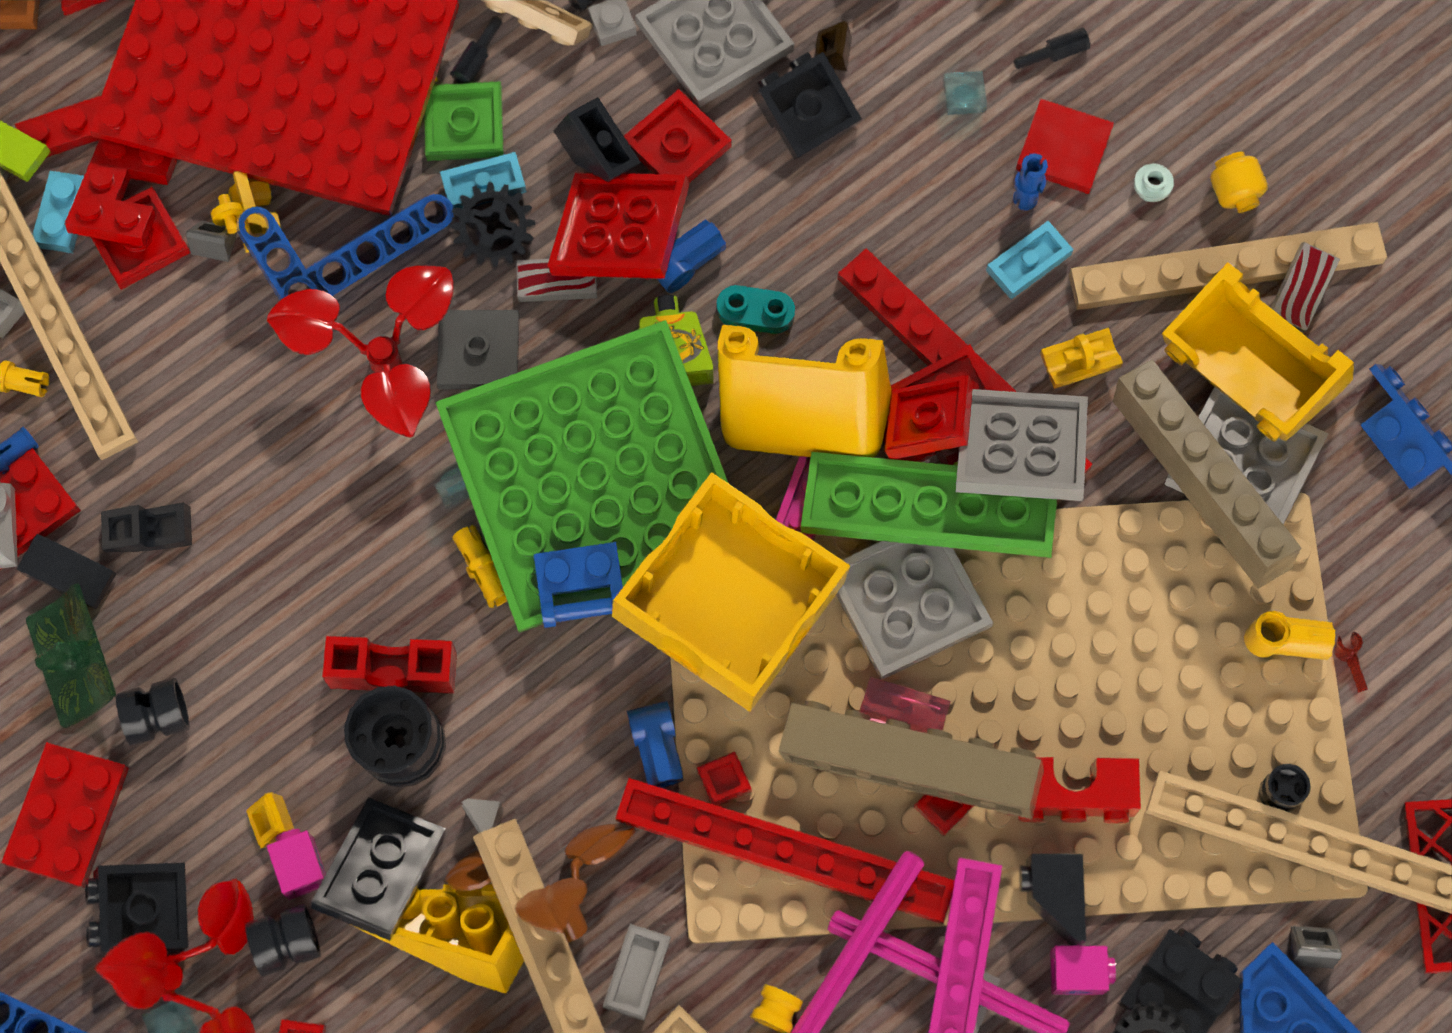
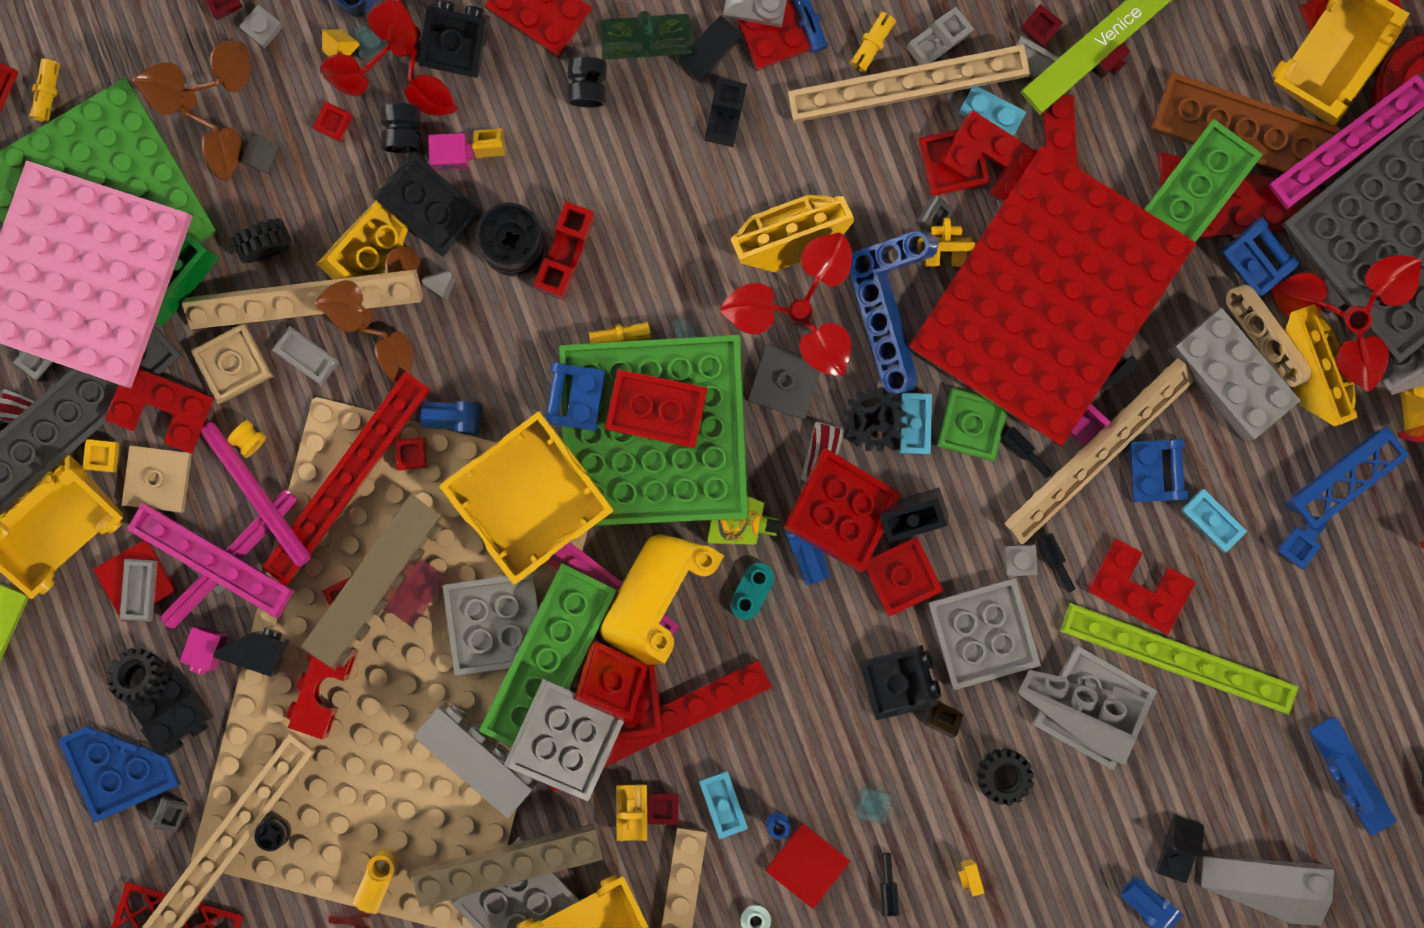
camera: 105 degrees right, 15 degrees up
(279, 391) = (780, 234): none -> yellow wedge
(562, 471) = (656, 408): none -> red plate
(1060, 324) = (663, 808): none -> dark red plate
(1091, 547) = (474, 758): none -> light grey brick

